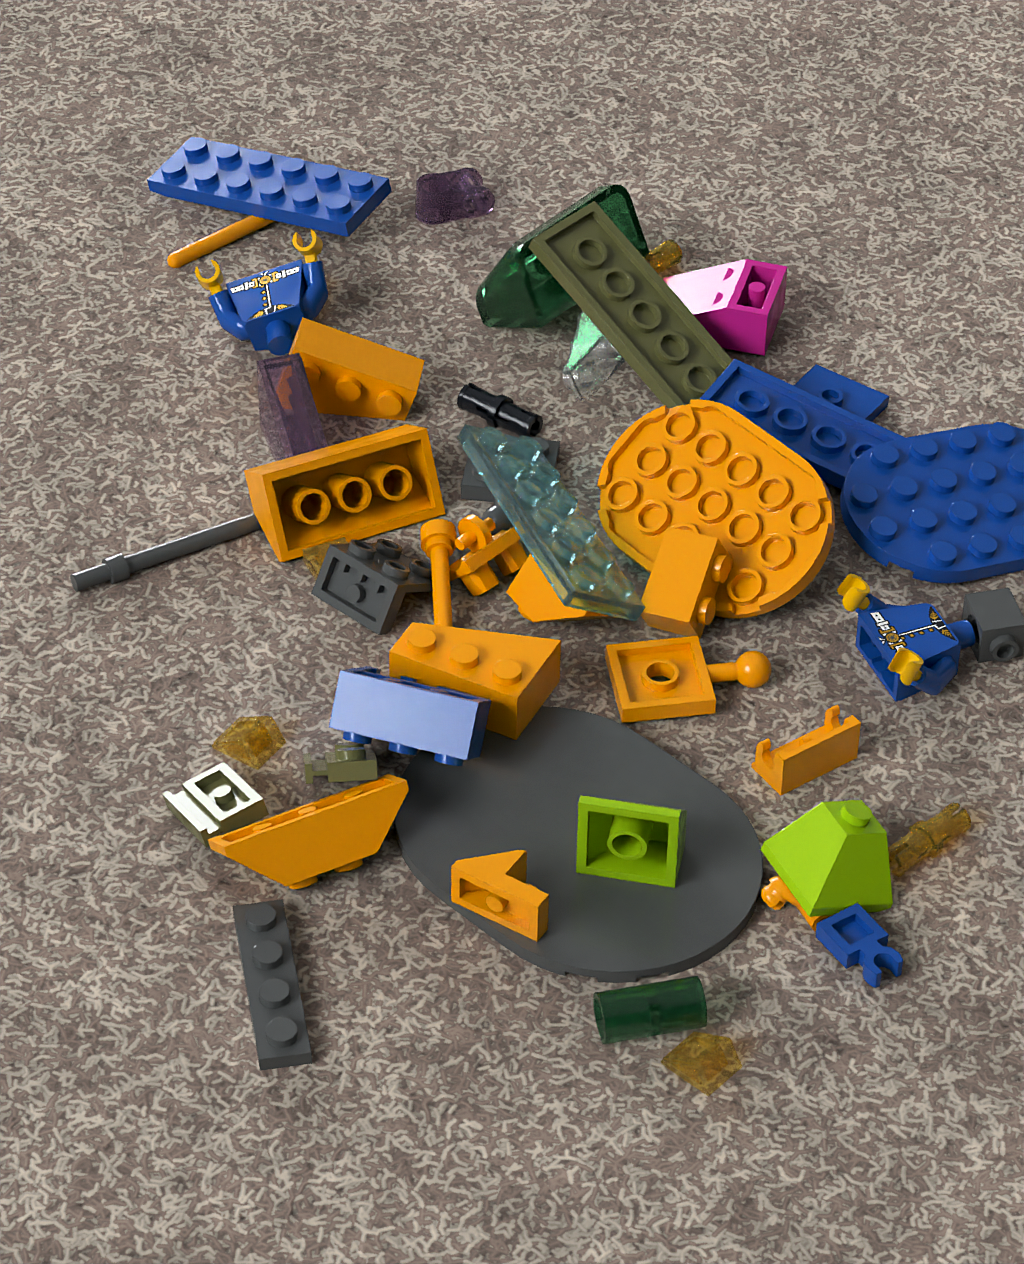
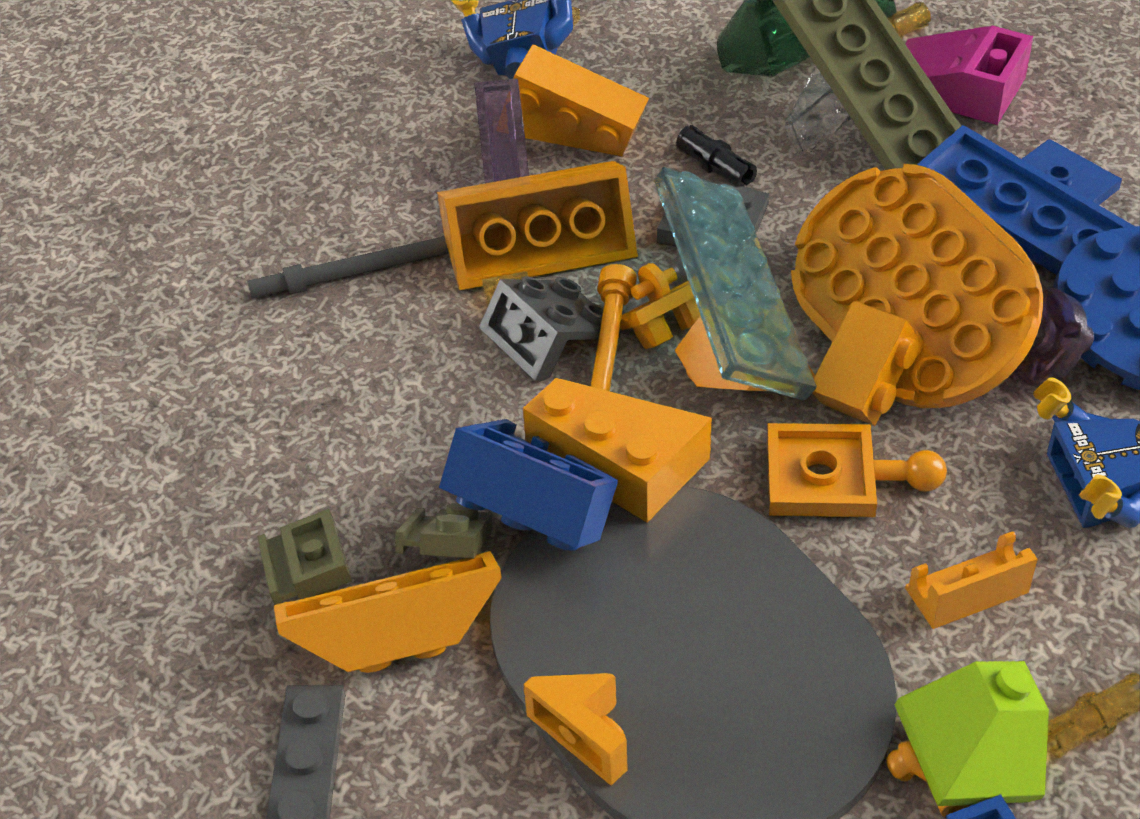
camera: 15 degrees right, 5 degrees up
(251, 740) = (370, 485): clear yellow slope -> none
(630, 841) = (742, 675): lime slope -> none
(857, 545) = (1063, 344): none -> plate

